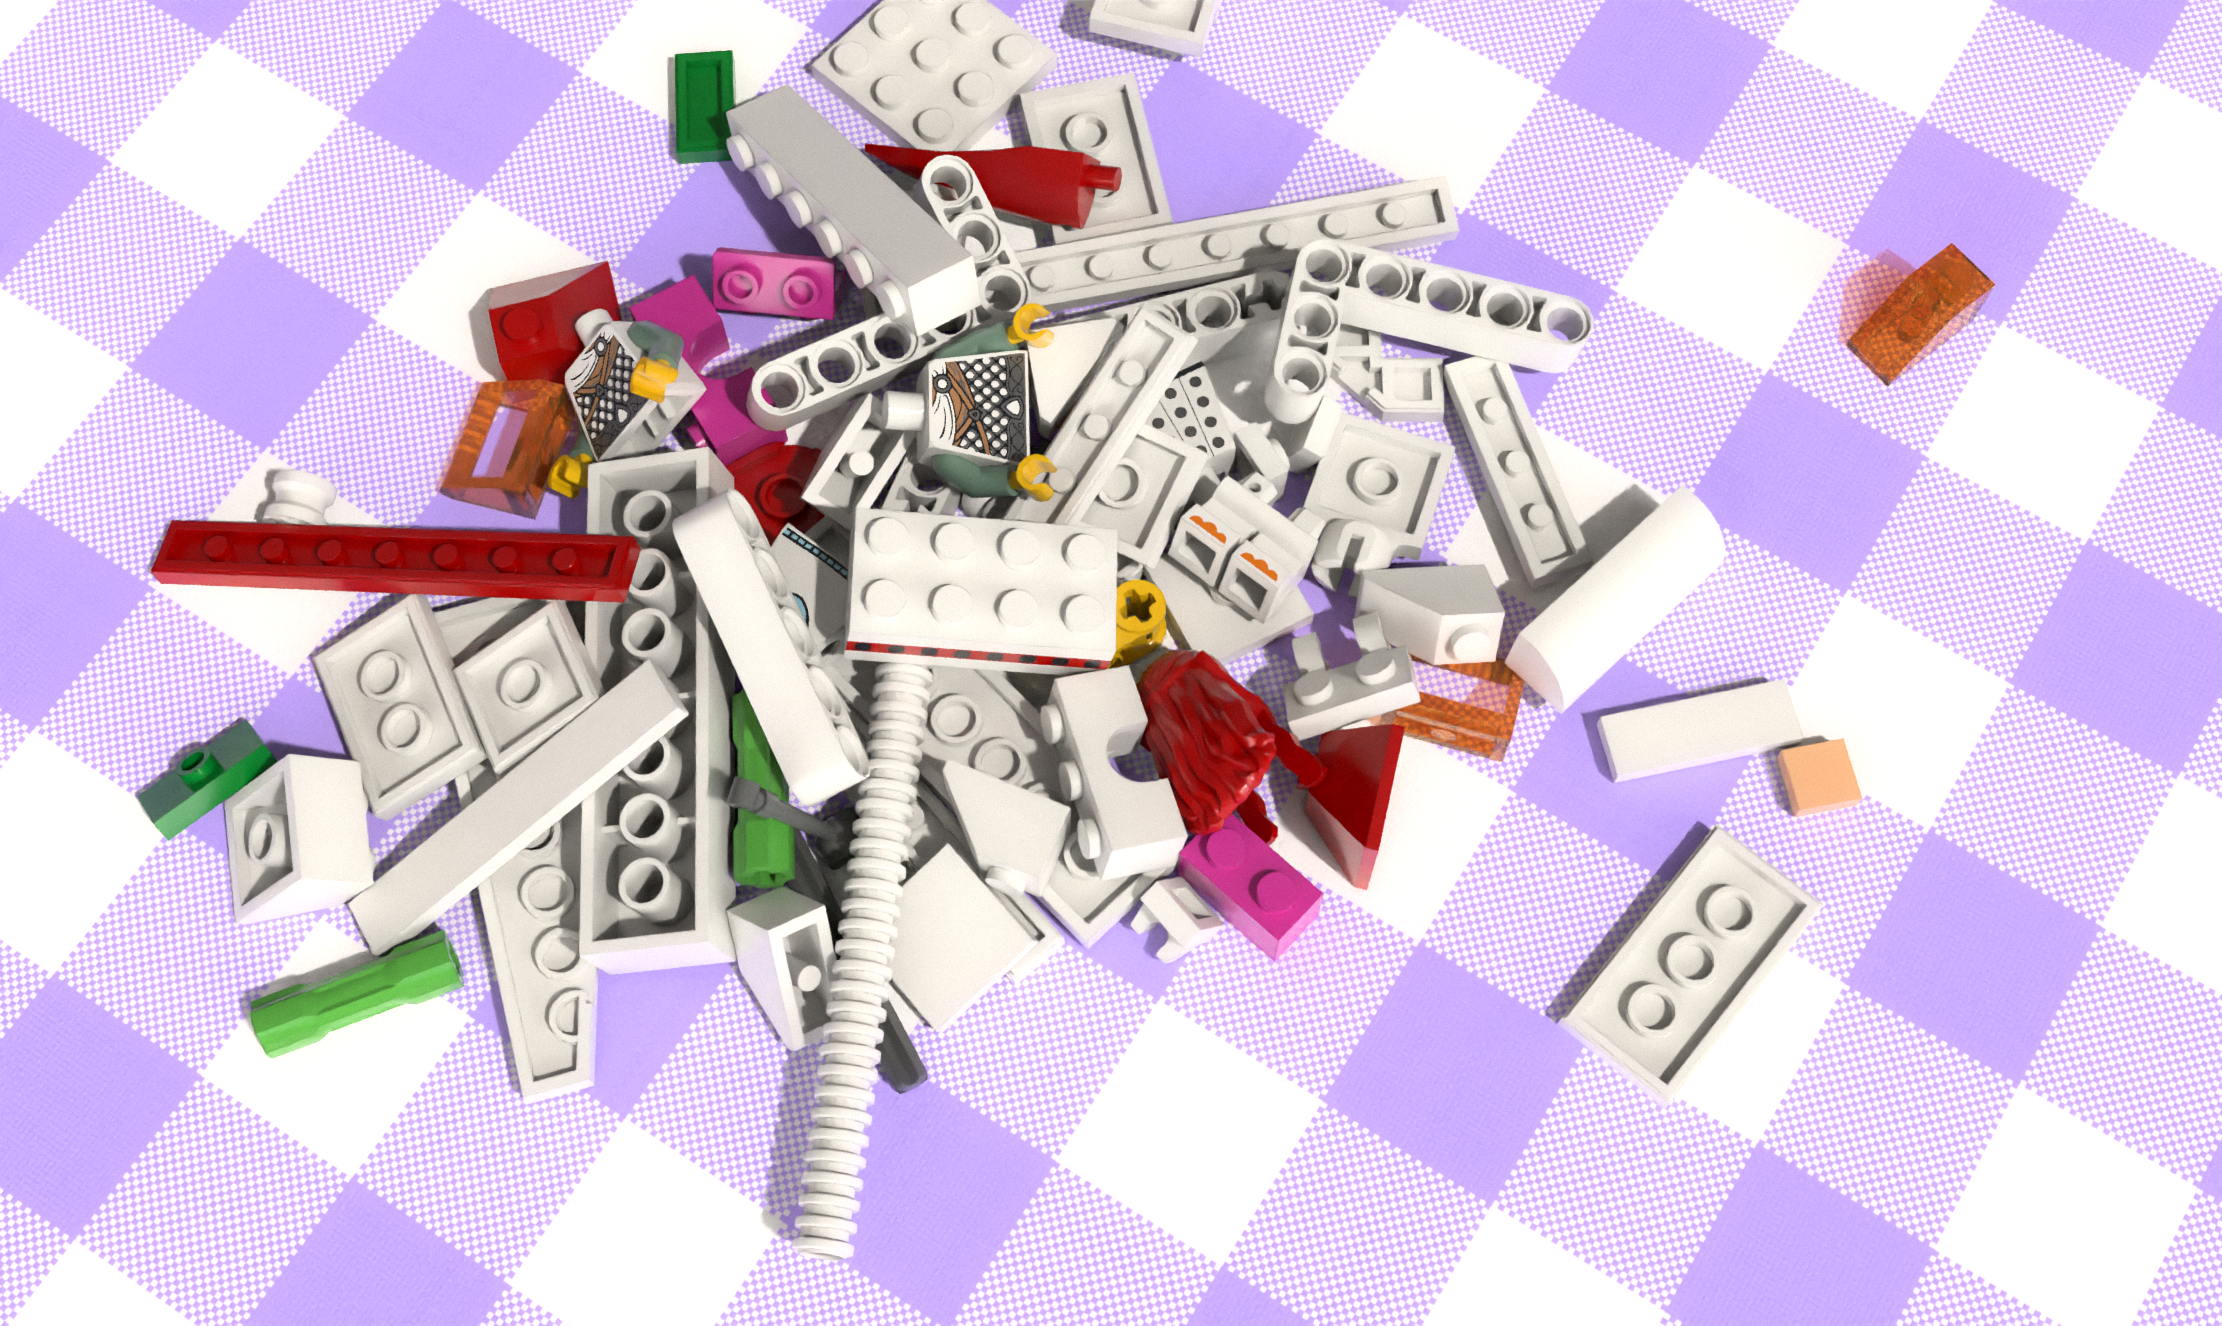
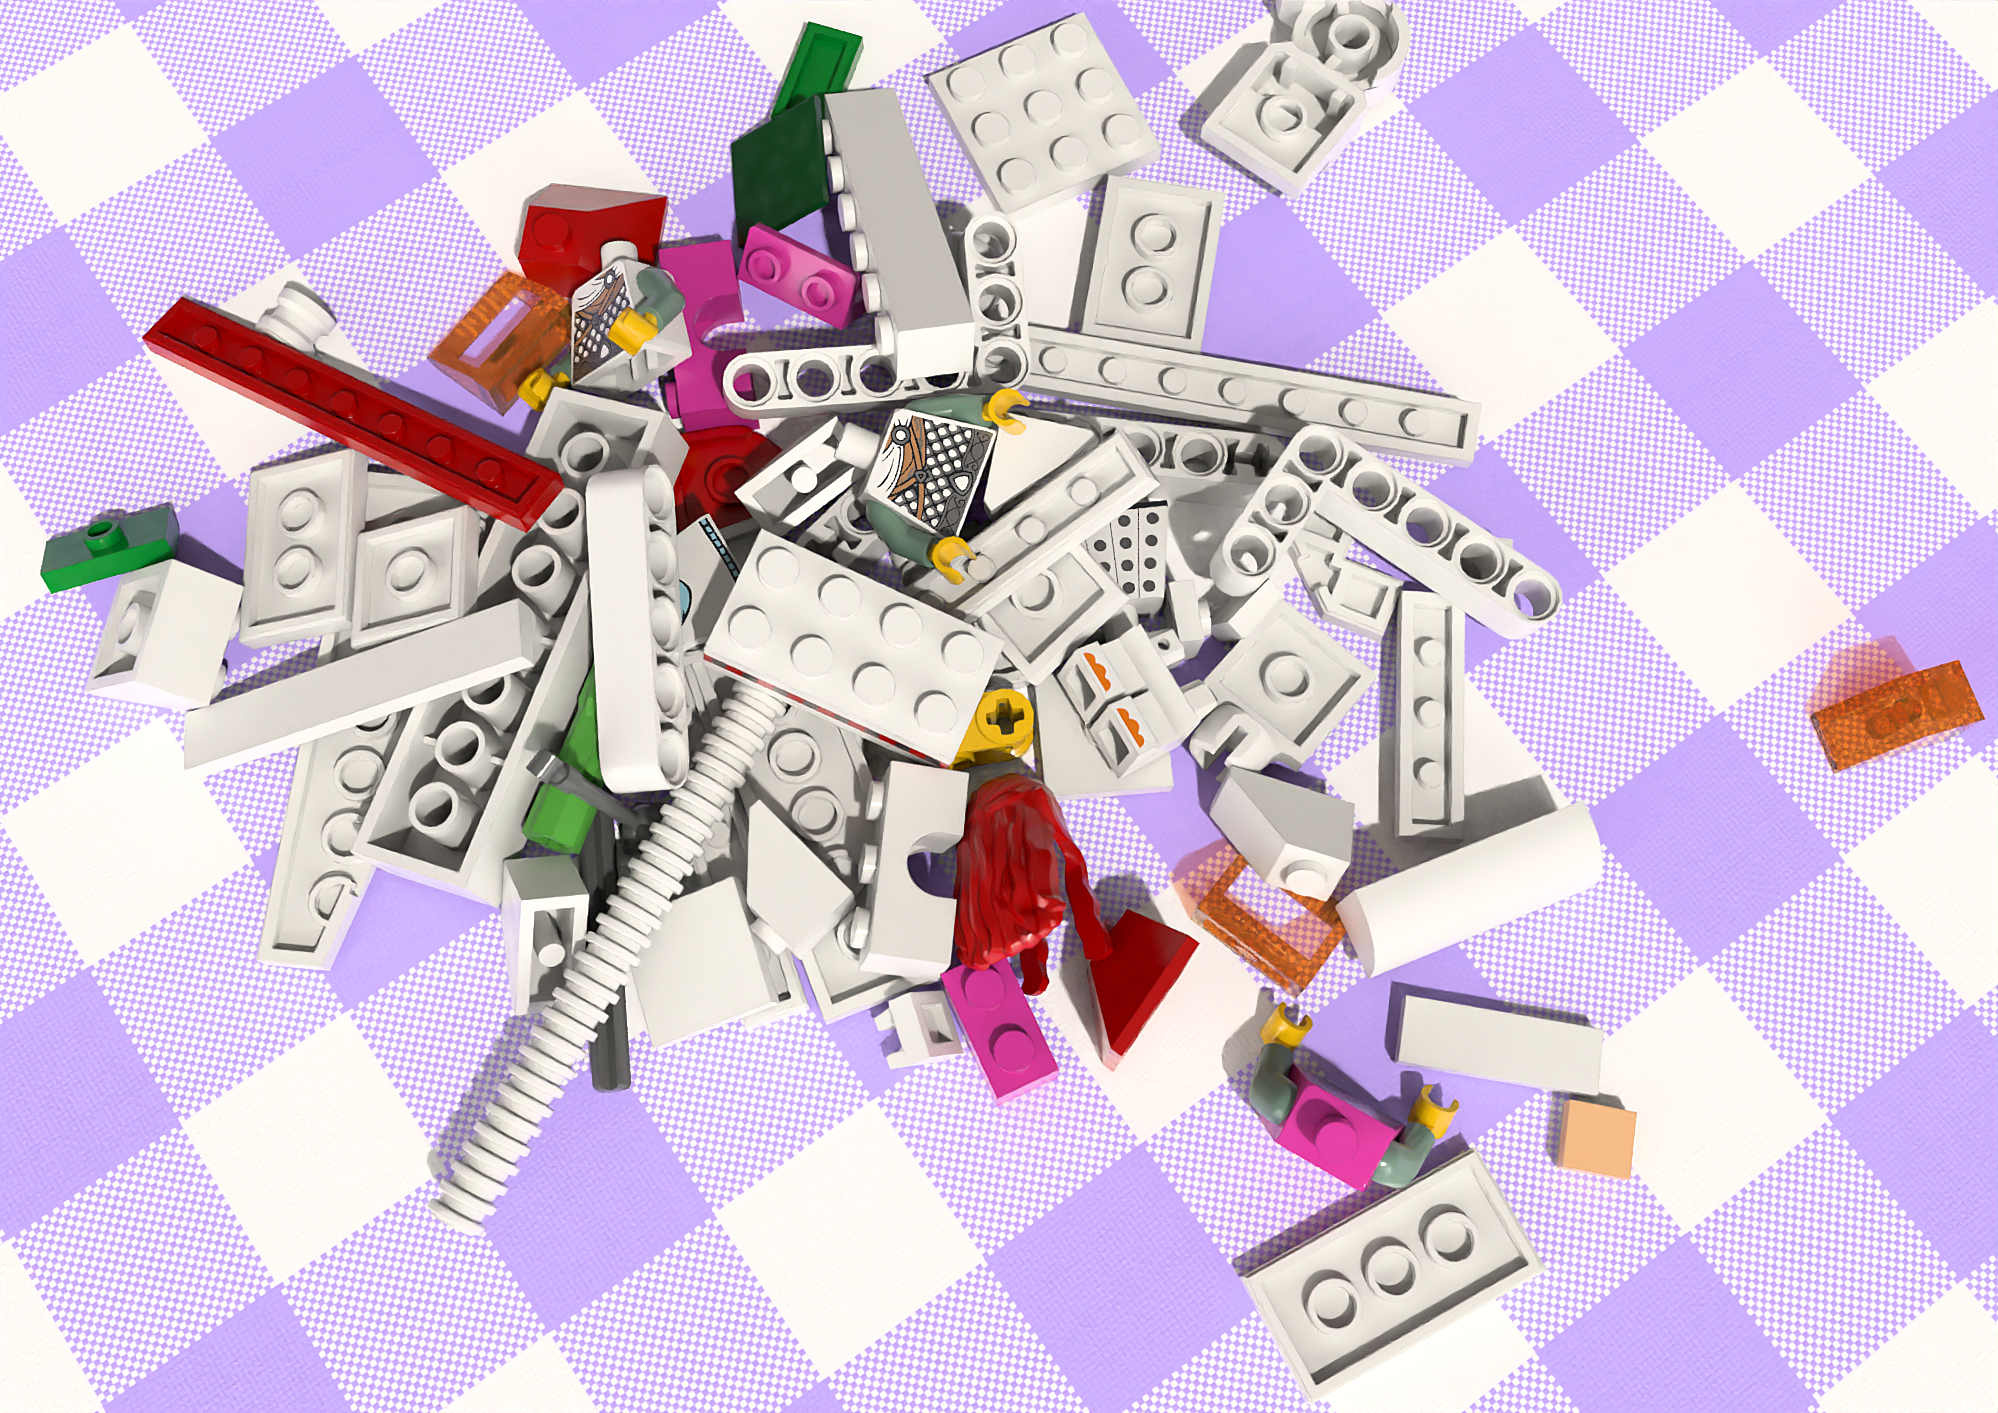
camera: 20 degrees right, 5 degrees up
(311, 1011) = (107, 801): bright green axle -> none
(710, 198) = (780, 170): none -> dark green piece
(1022, 180) = (1071, 259): red piece -> none
(1353, 692) = (1173, 882): white plate -> none
(1585, 847) = (1333, 1125): none -> torso

